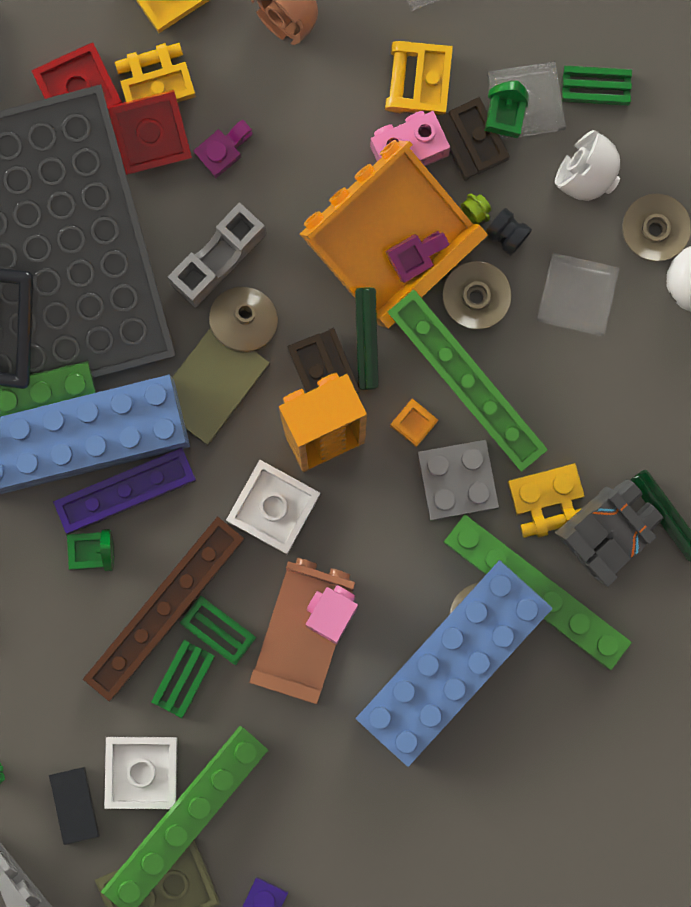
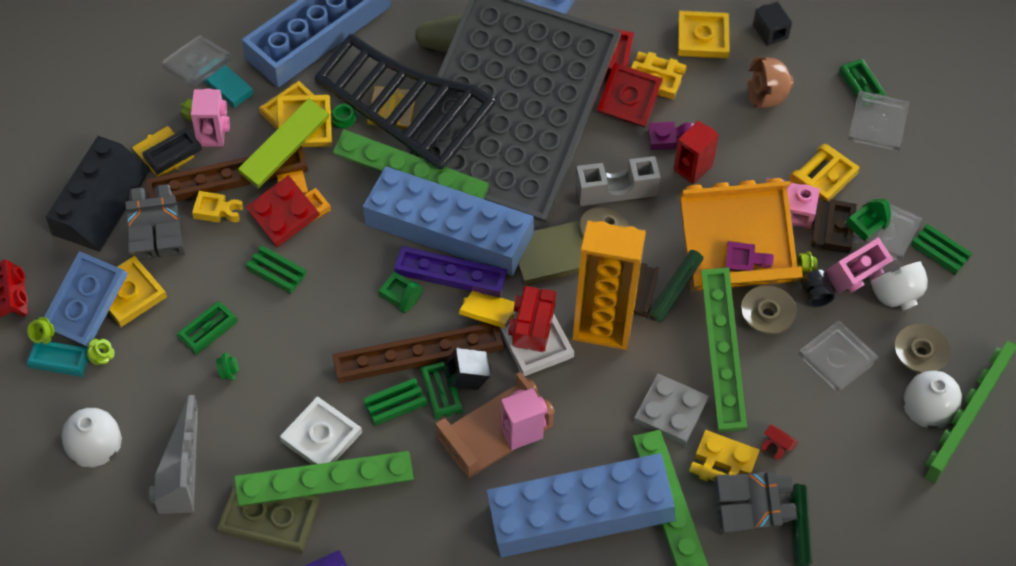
camera: 35 degrees right, 25 degrees down
(74, 805) = (262, 426): black tile -> none
(197, 507) = (488, 309): none -> yellow piece
(231, 594) = (467, 369): none -> black brick
(256, 491) = (533, 318): none -> red brick
(274, 158) = (696, 152): none -> red brick
(414, 422) = (668, 357): light orange tile -> none
(534, 177) = (859, 265): none -> bright pink brick
(587, 436) = (780, 439): none -> red tile

